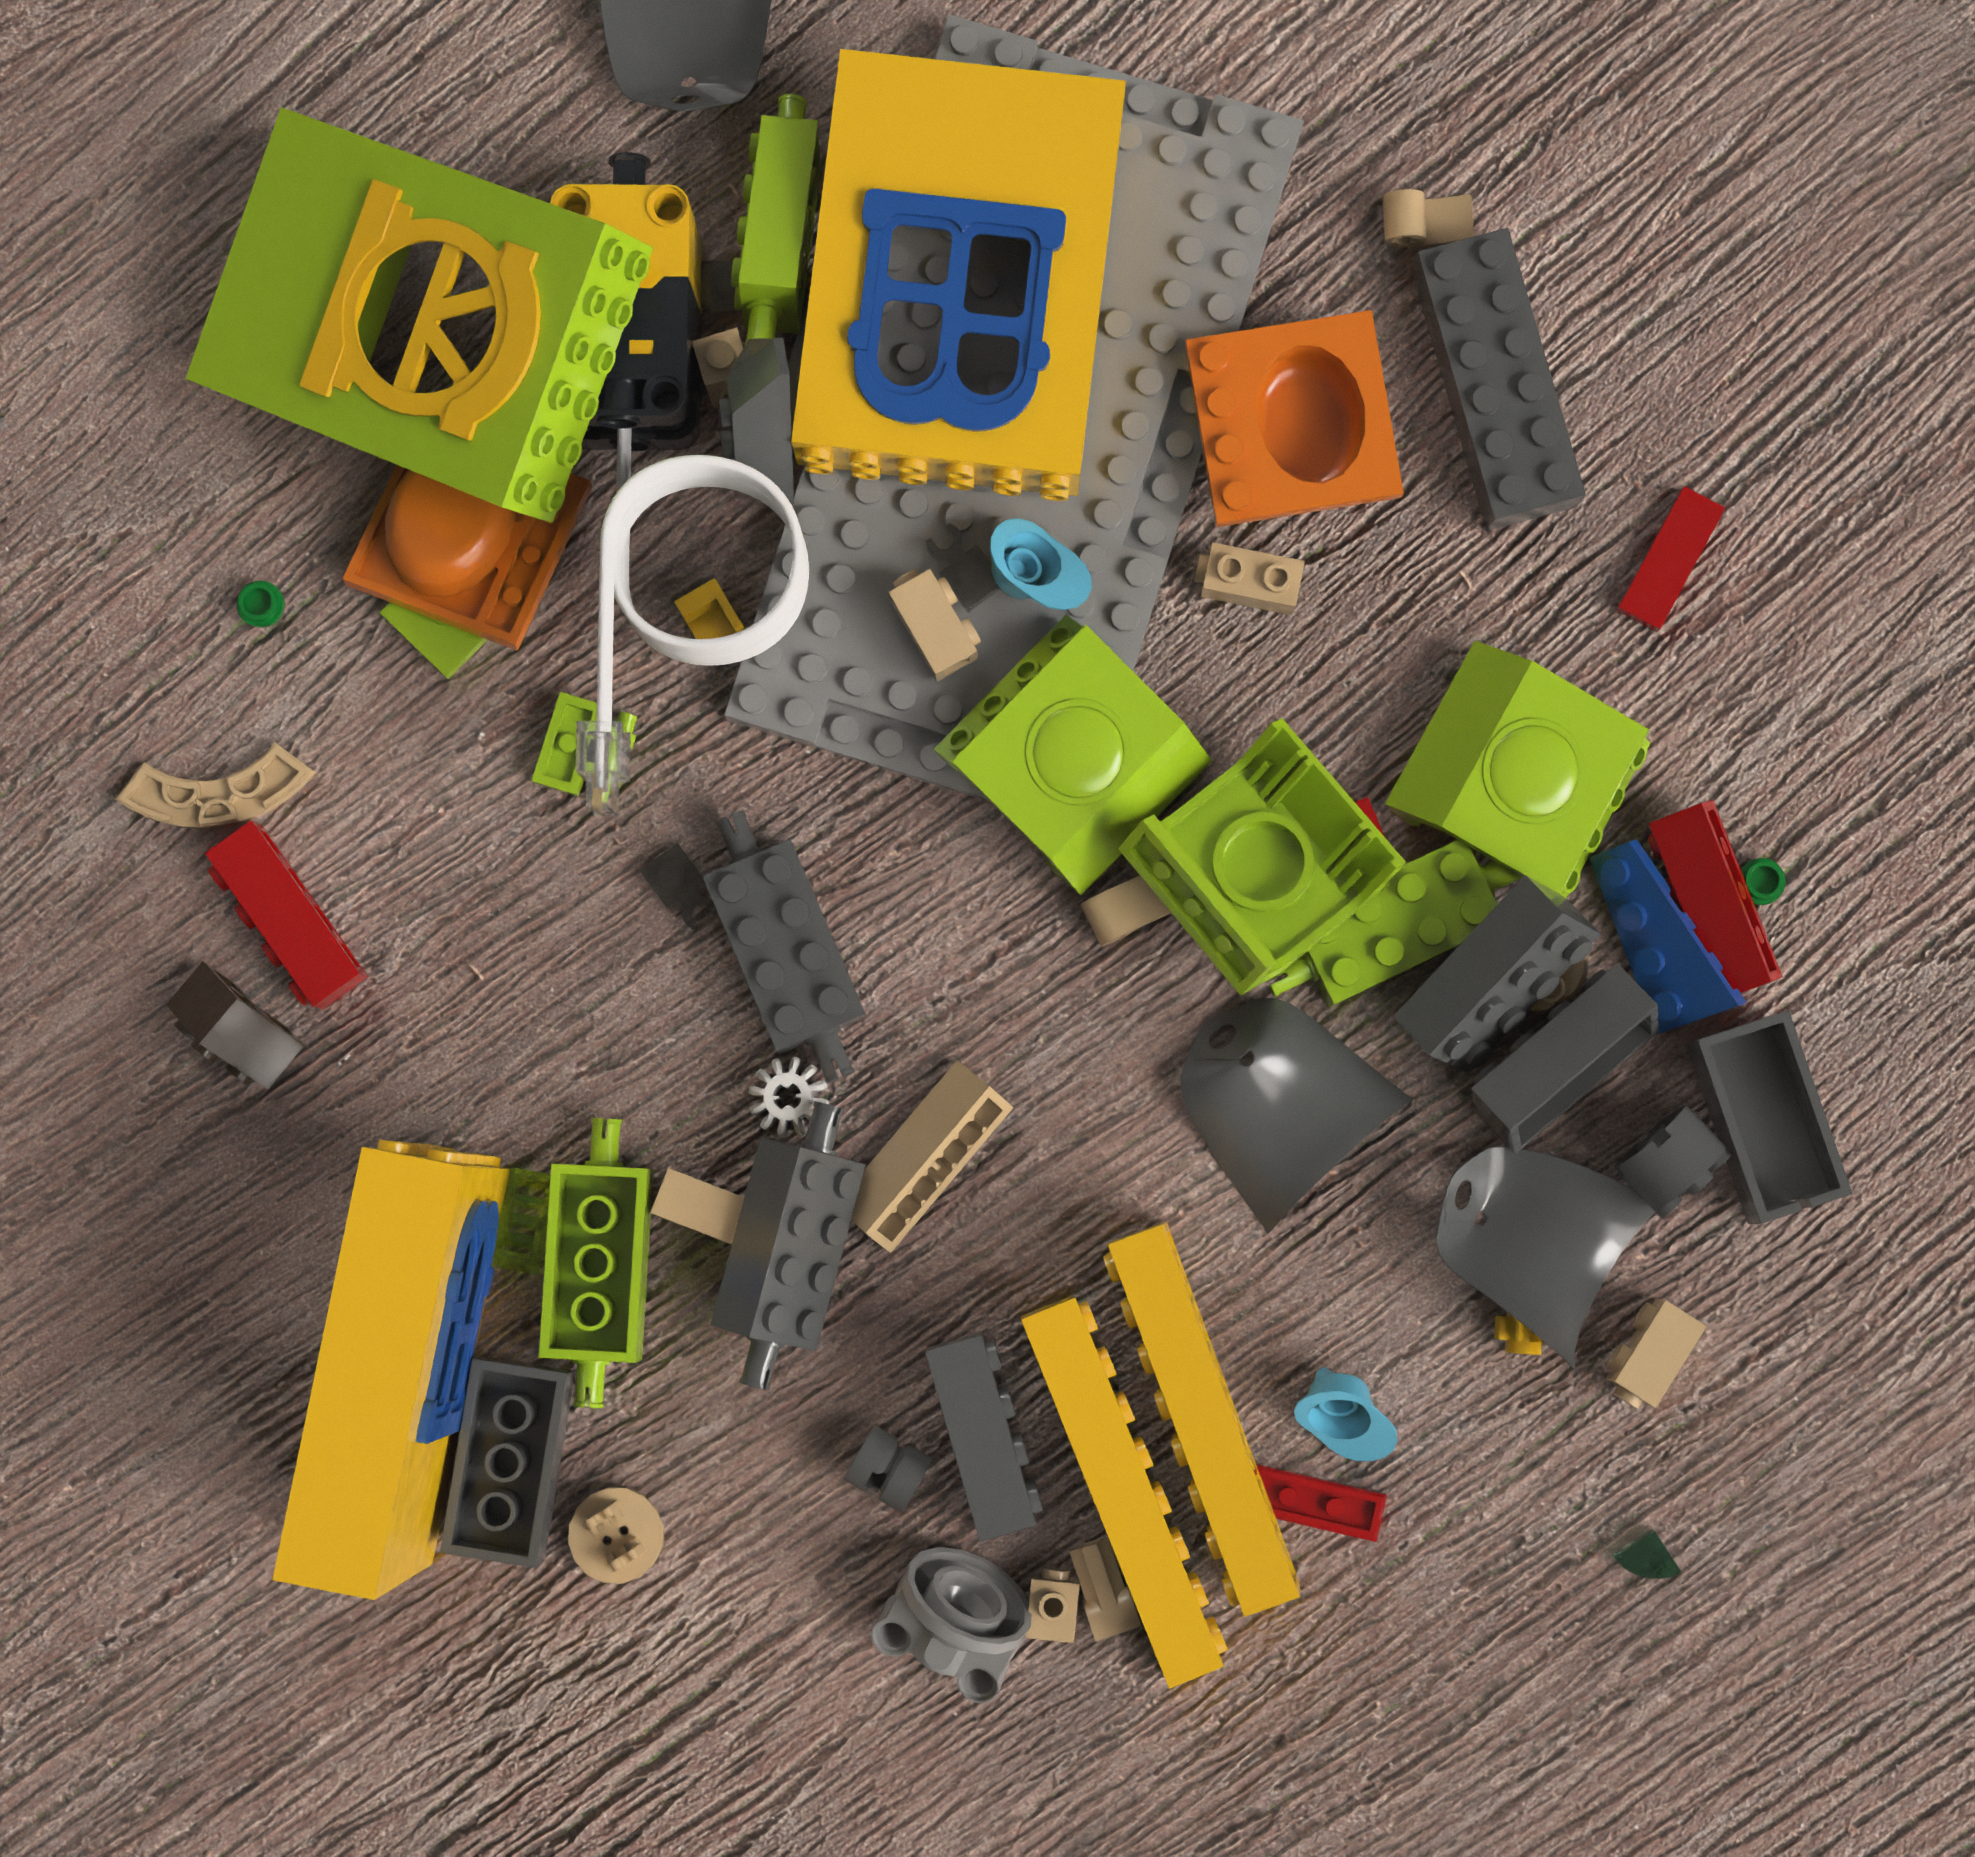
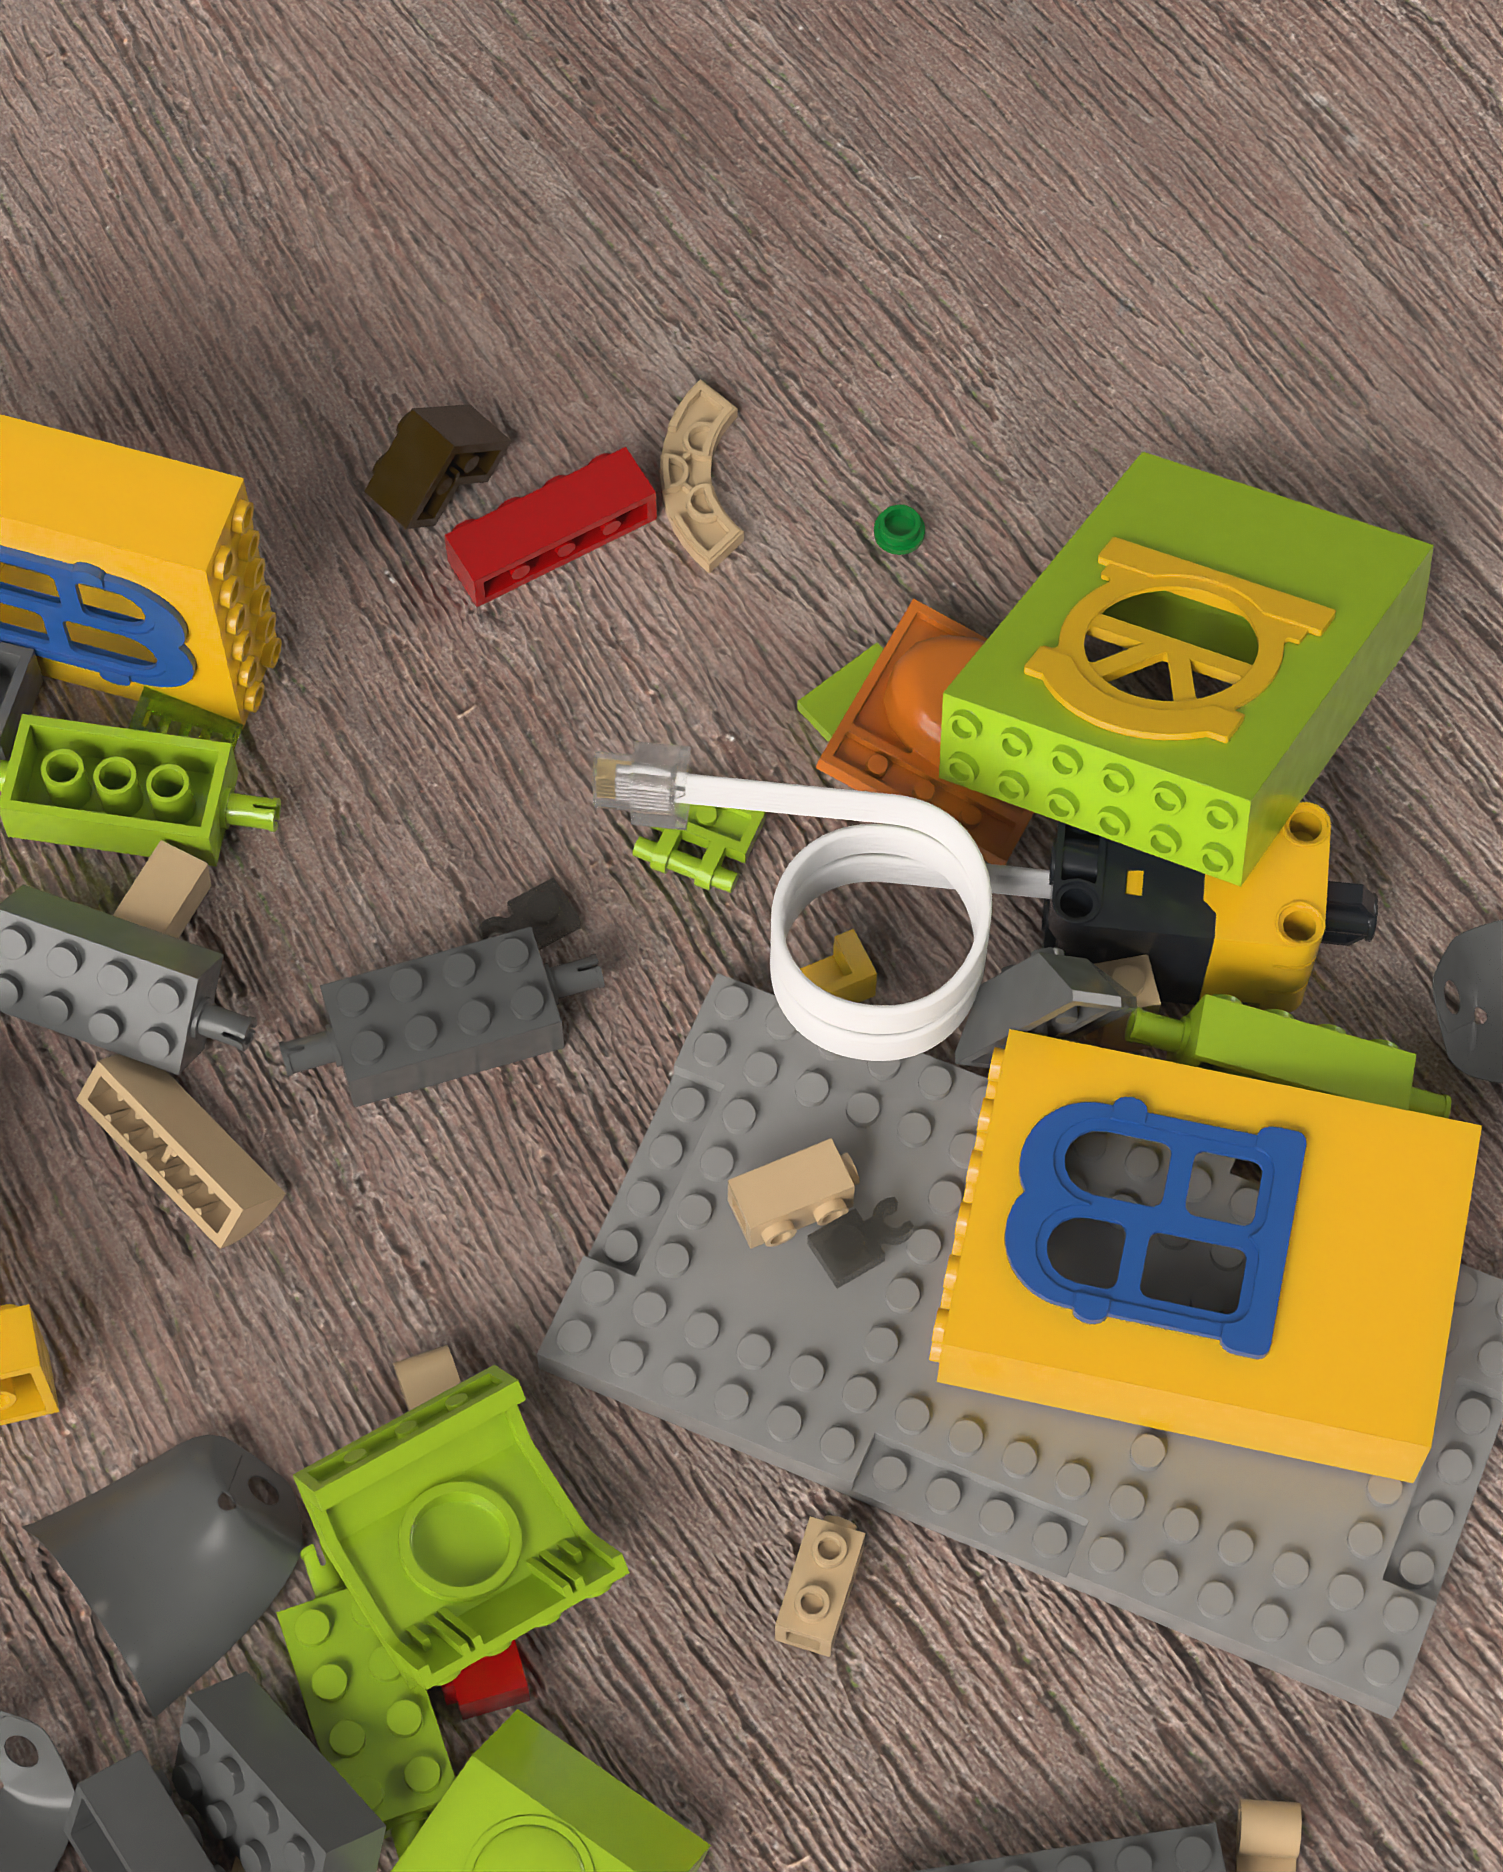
camera: 90 degrees right, 20 degrees down
(787, 1080) = (274, 988): white gear -> none
(1037, 567) = (847, 1310): medium azure piece -> none
(1074, 751) = (619, 1339): lime panel -> none
(1293, 418) = (1011, 1645): orange piece -> none

